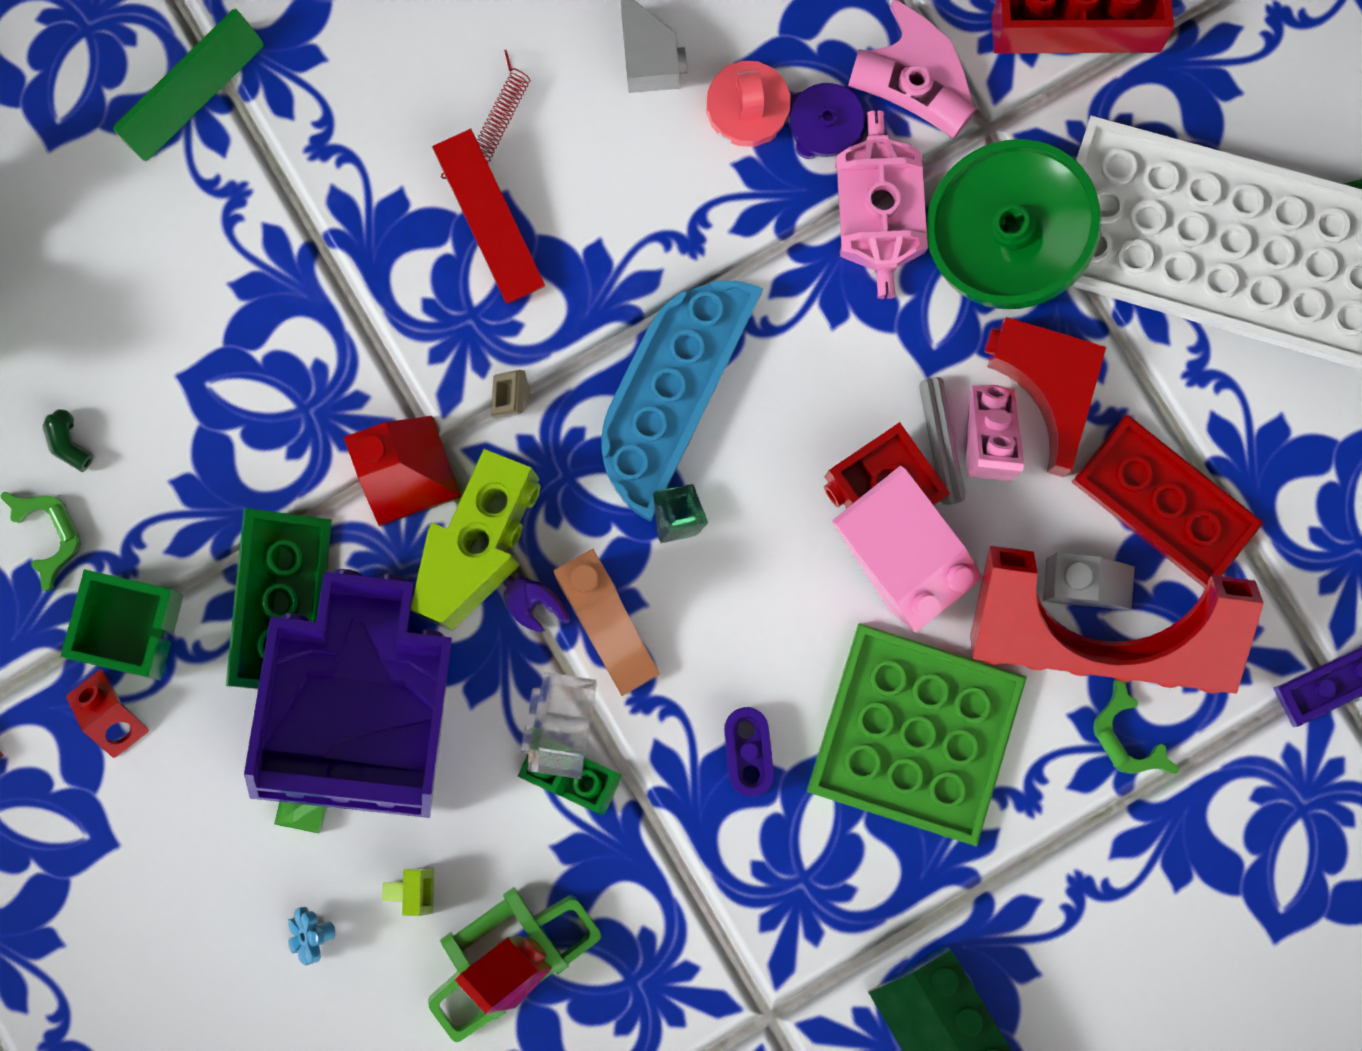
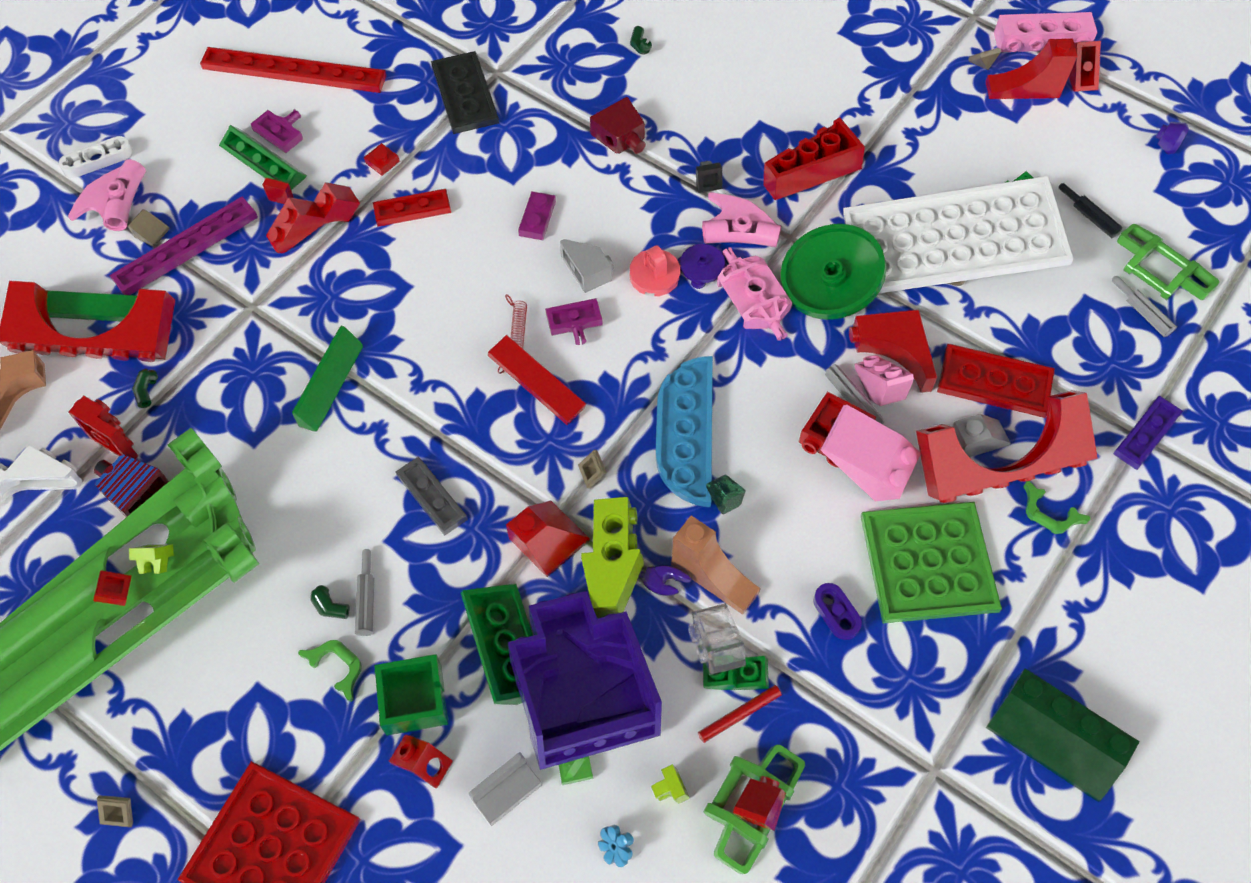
camera: 15 degrees left, 20 degrees down
(118, 451) = (364, 597): none -> light grey axle
(199, 801) = (505, 789): none -> light grey panel
(267, 335) = (431, 496): none -> flat silver tile
(549, 832) = (739, 713): none -> red bar
(589, 135) = (574, 318): none -> magenta plate

